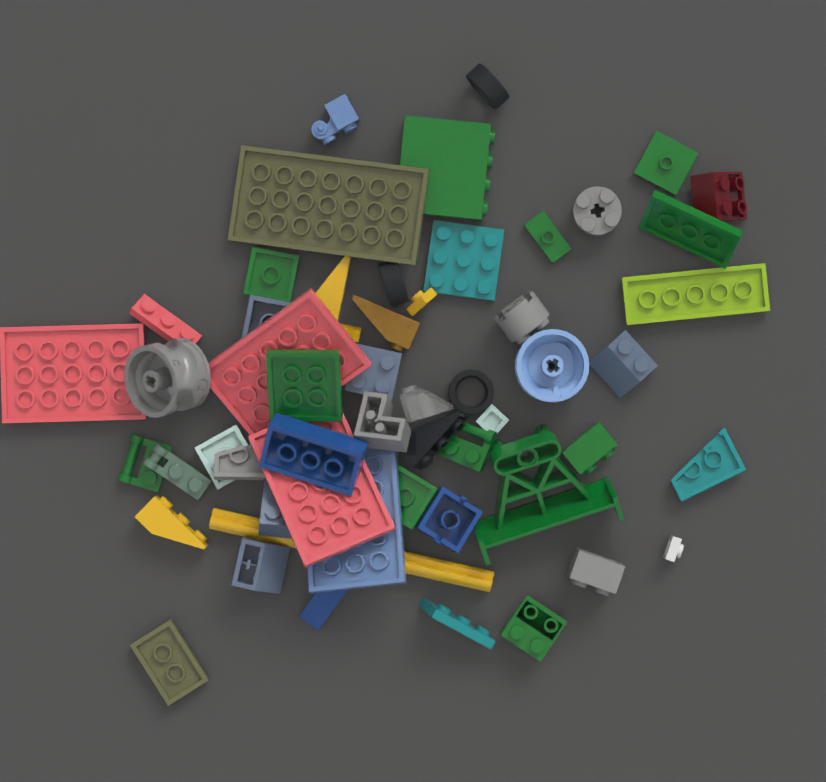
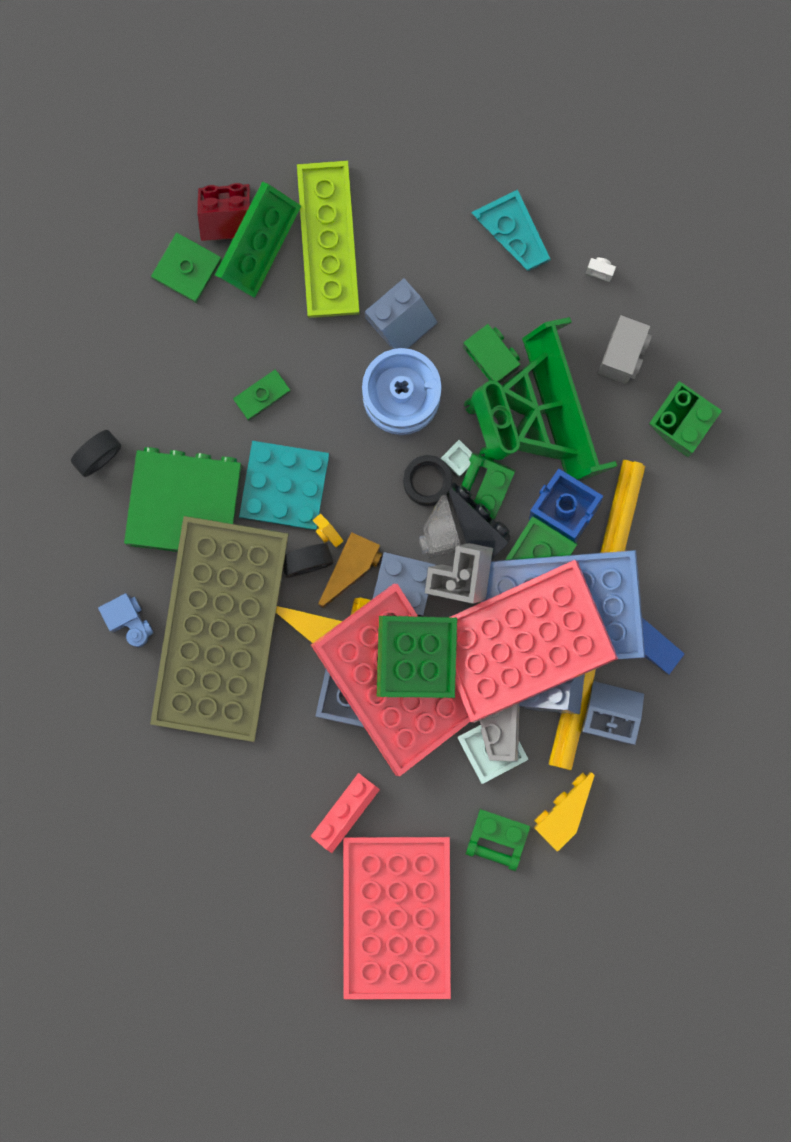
camera: 90 degrees left, 5 degrees down
(167, 377) = (404, 809): light grey piece -> none
(169, 662) = (718, 817): olive plate -> none
(178, 472) = (508, 802): sand green plate -> none
(271, 274) = (293, 694): green plate -> none
(313, 454) = (492, 648): blue slope -> none
(460, 623) = (679, 498): teal wing -> none
(522, 317) = (348, 421): light grey brick -> none
(605, 200) = (235, 325): light grey brick -> none

